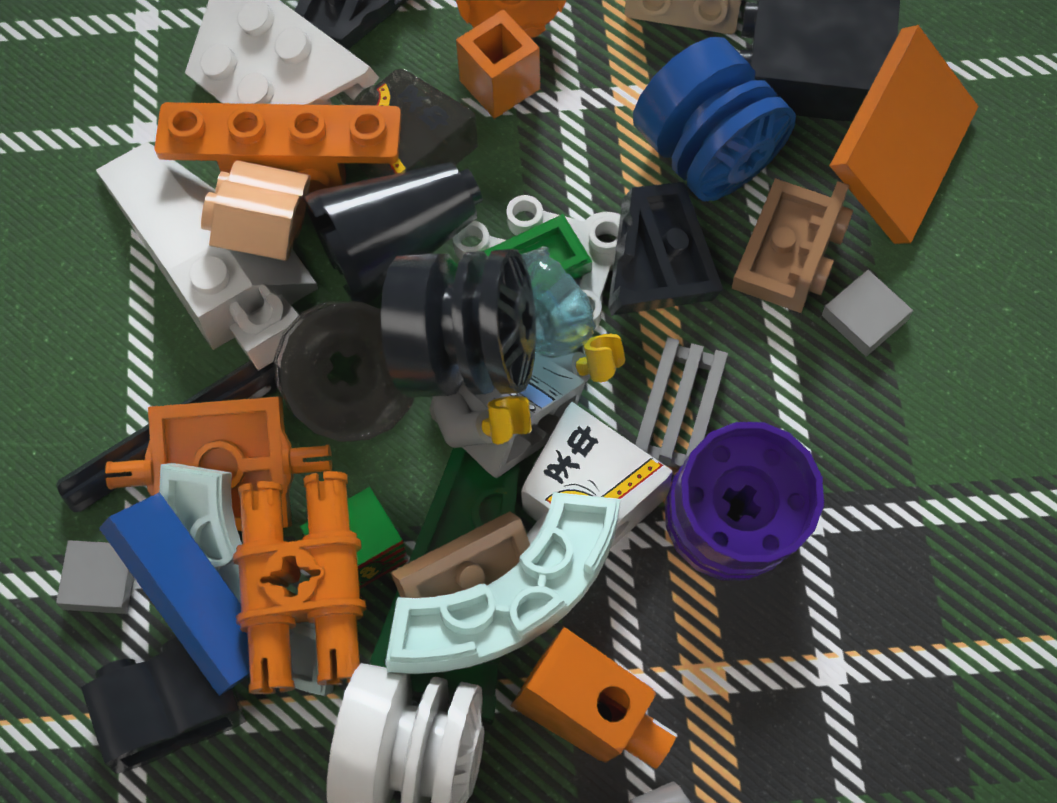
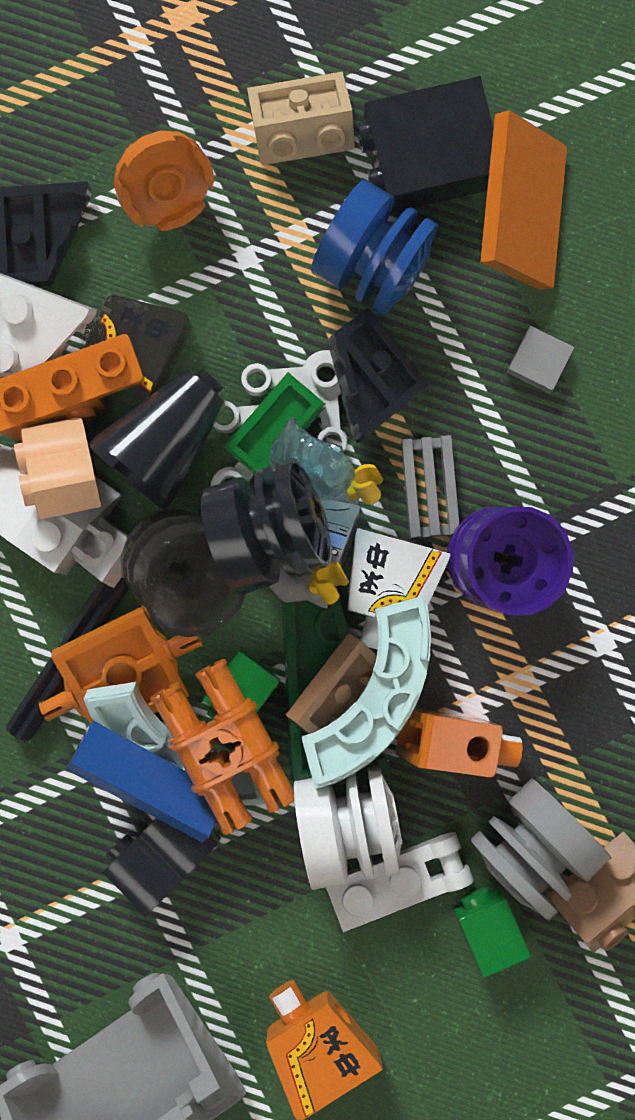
camera: 20 degrees left, 20 degrees up
(94, 579) = (63, 788): light grey tile -> none
(498, 63) = (184, 258): orange brick -> none
(790, 243) = (468, 326): medium nougat bracket -> none

